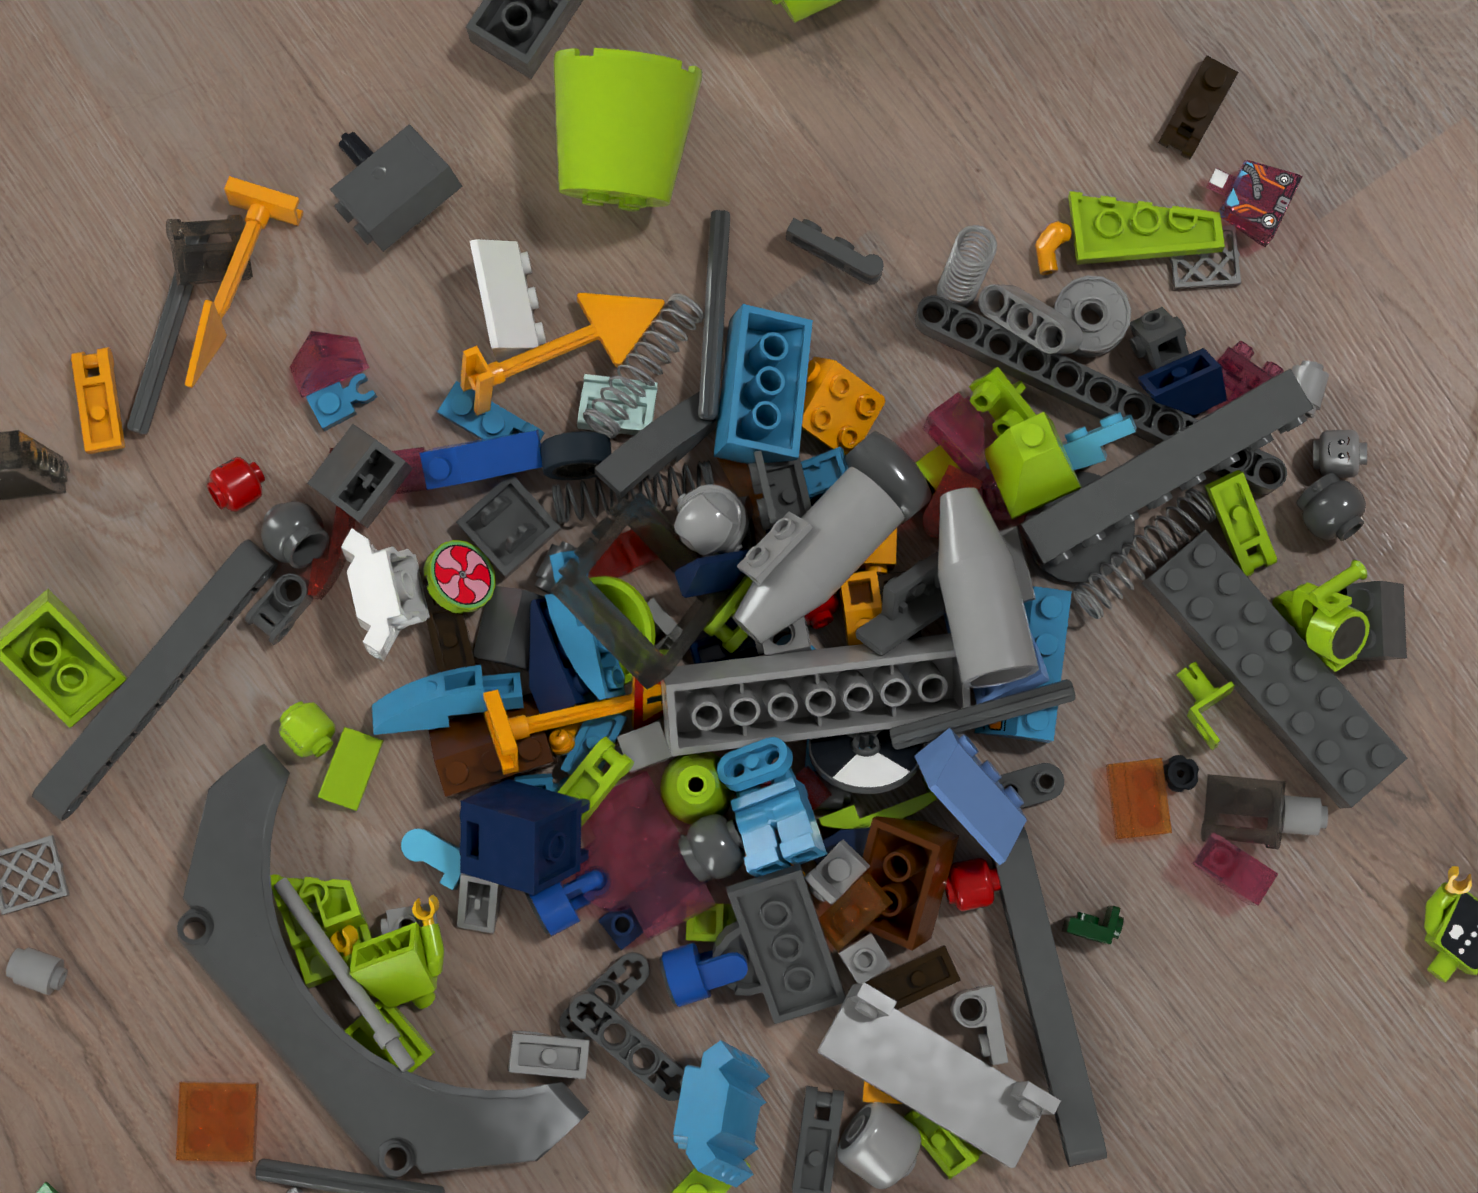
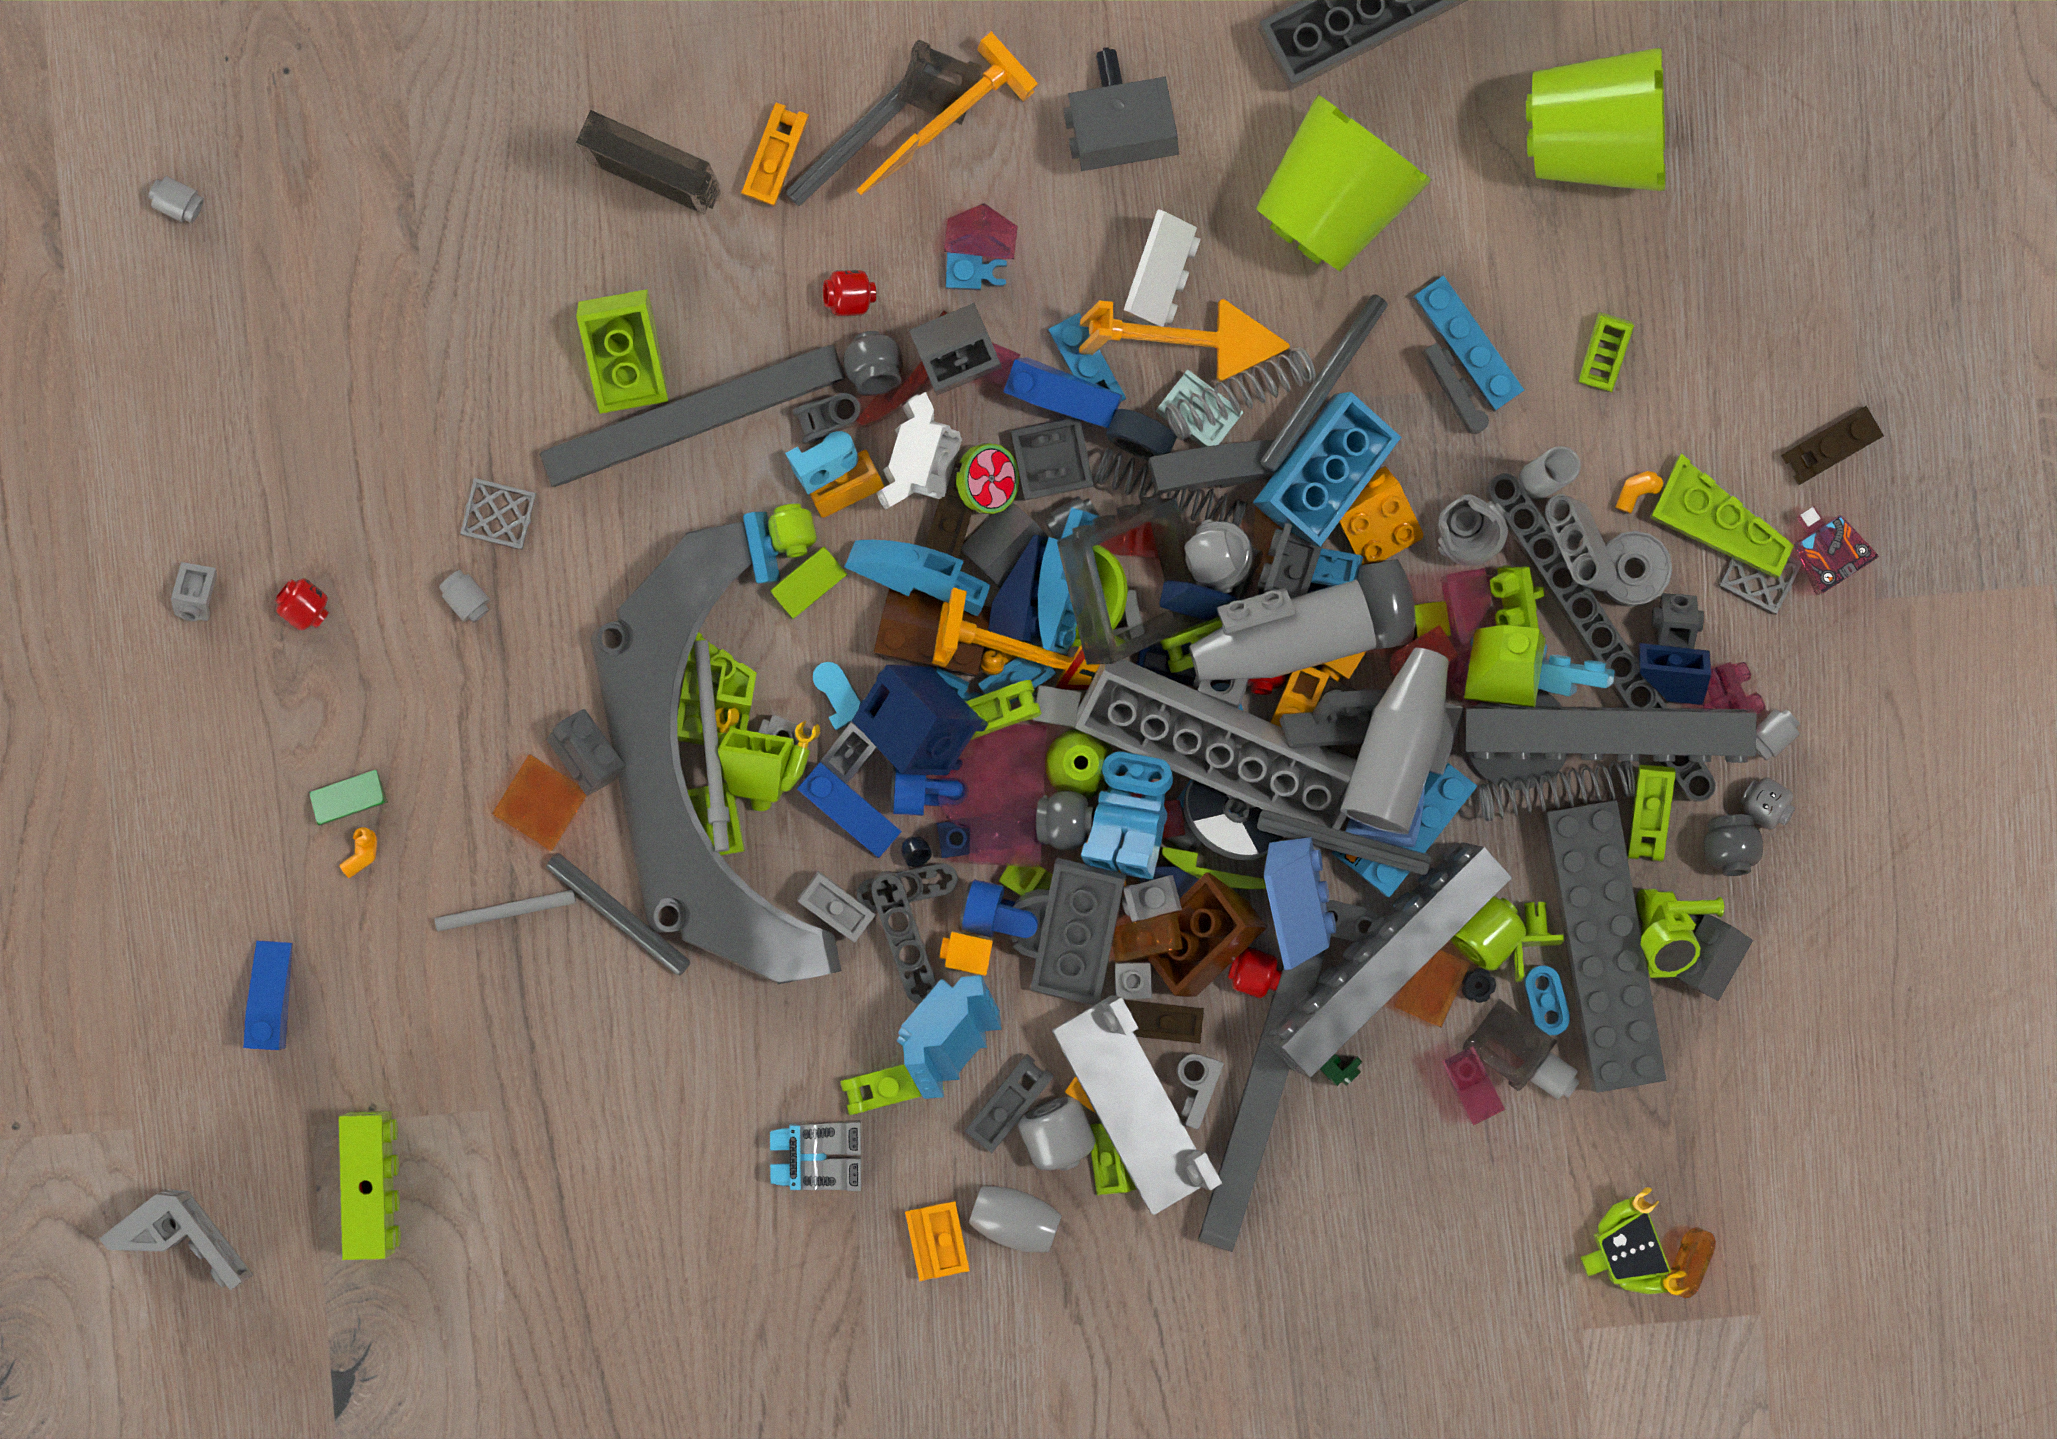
camera: 30 degrees right, 5 degrees up
(230, 1049) = (585, 752): none -> dark grey brick
(289, 765) = (761, 548): none -> dark azure plate
(300, 649) = (824, 461): none -> medium azure leg
(331, 660) = (849, 488): none -> light orange slope
(508, 956) = (849, 809): none -> blue slope
(593, 958) = (916, 851): none -> black hinge
(696, 1025) = (967, 952): none -> light orange slope
(822, 205) = (1468, 343): none -> dark azure plate
(926, 365) = (1472, 530): none -> light grey helmet
(955, 112) = (1622, 342): none -> lime slope
(1085, 799) = (1386, 958): none -> brick
(1159, 718) = (1491, 934): none -> lime head
(1250, 749) = (1547, 999): none -> dark azure plate

